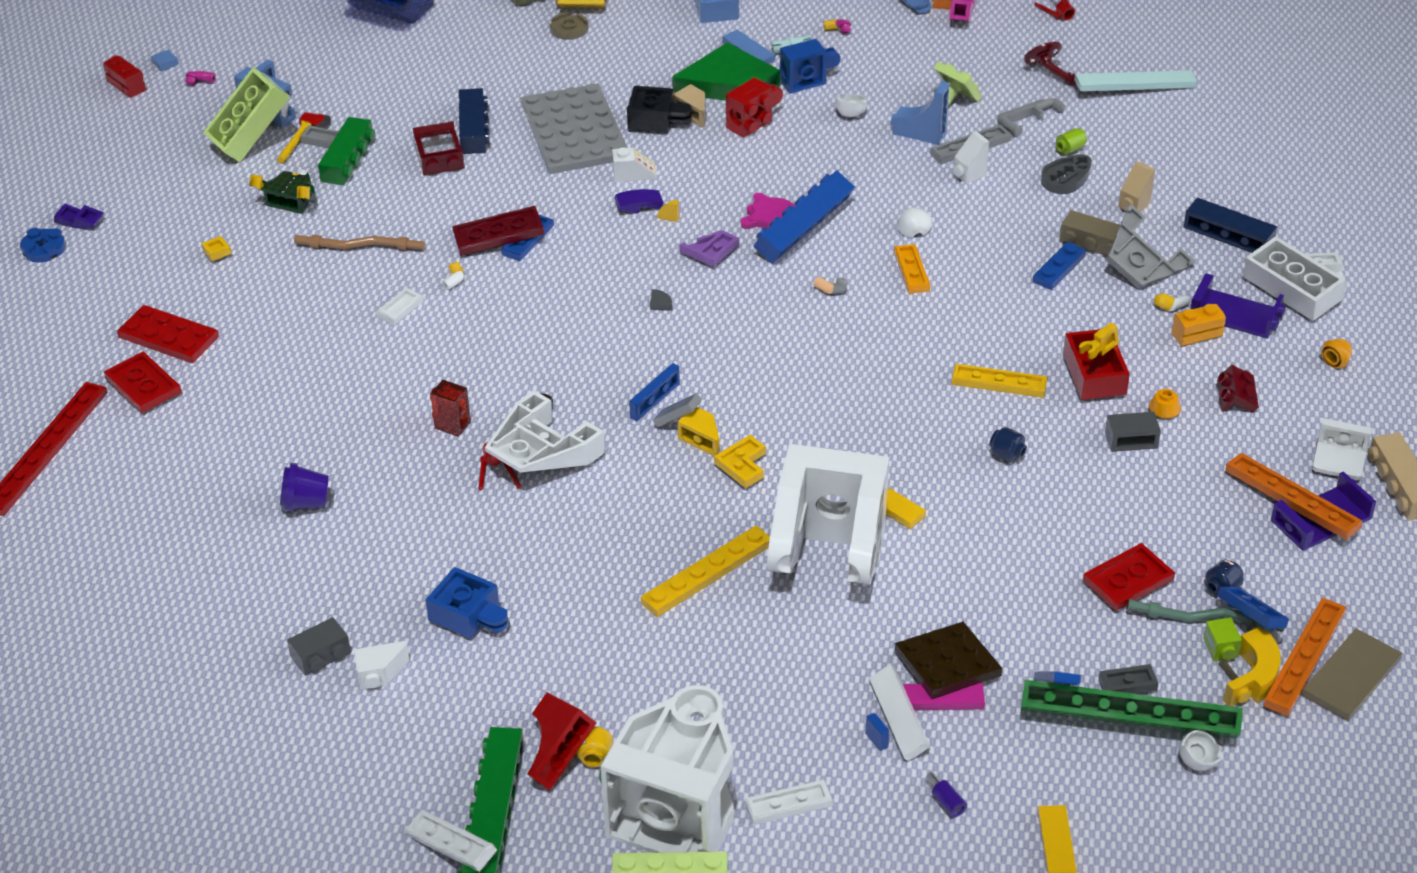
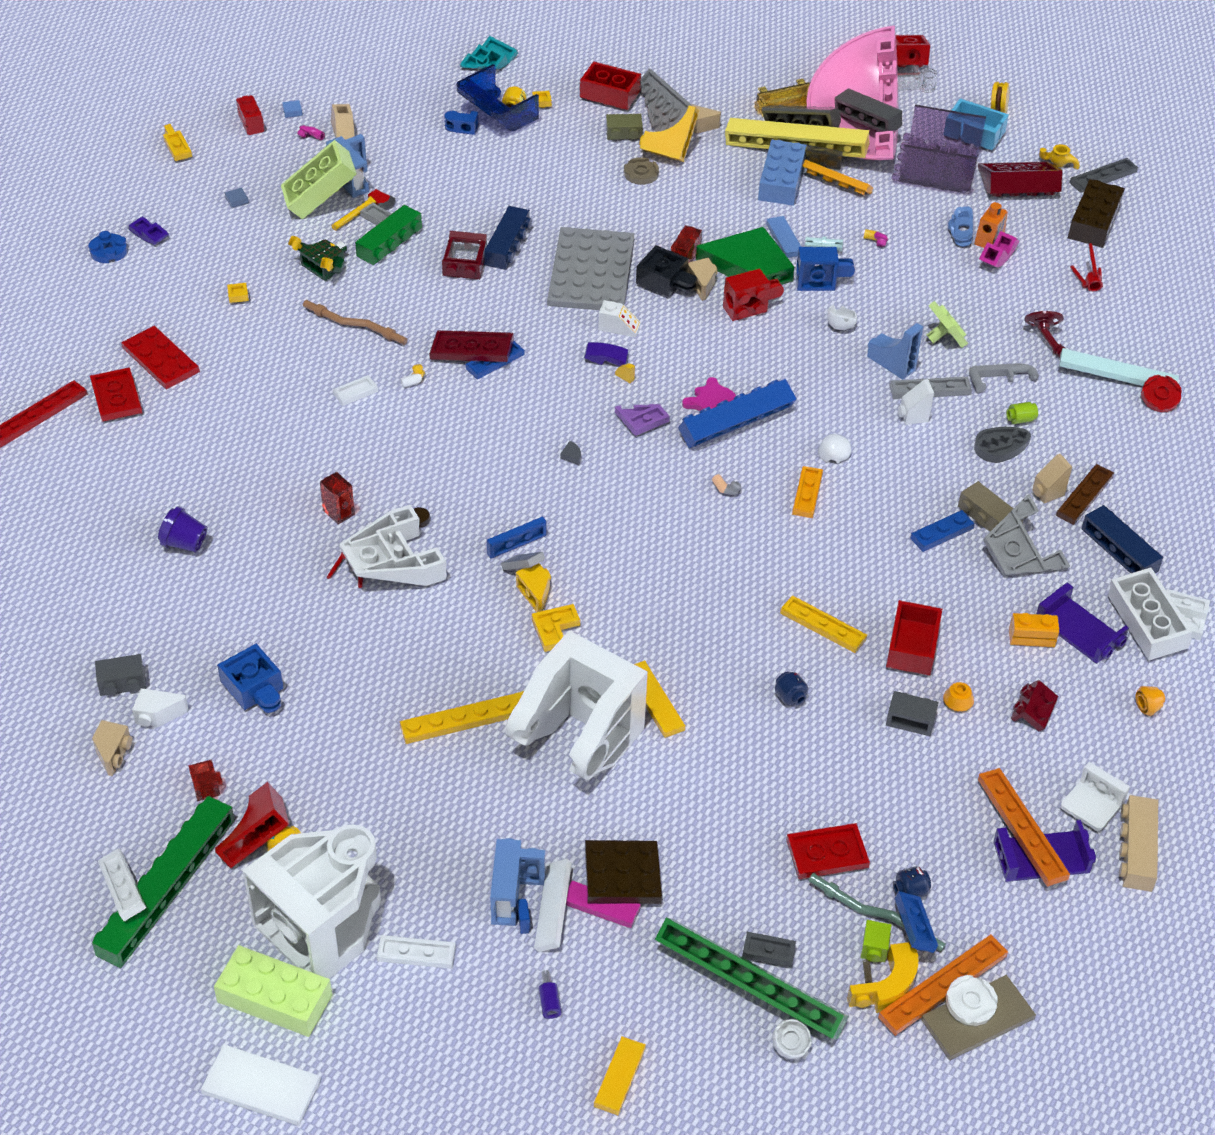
camera: 20 degrees right, 5 degrees up
(57, 124) = (176, 143): none -> yellow hinge
(156, 159) = (236, 197): none -> sand blue tile
(230, 56) = (342, 120): none -> tan slope
(349, 716) = (110, 744): none -> tan slope
(356, 27) = (461, 122): none -> blue leg
(473, 716) = (205, 780): none -> clear red brick
(660, 73) = (687, 241): none -> clear red brick
(846, 696) = (510, 869): none -> medium blue brick
(1057, 677) = (697, 925): blue tile -> none
(1103, 341) = (924, 620): yellow plate -> none
(1169, 196) = (1085, 494): none -> reddish brown tile
(1170, 303) = (1022, 600): arm -> none
(1185, 89) = (1161, 393): none -> red tile
(1341, 659) = (971, 1000): none -> white tile

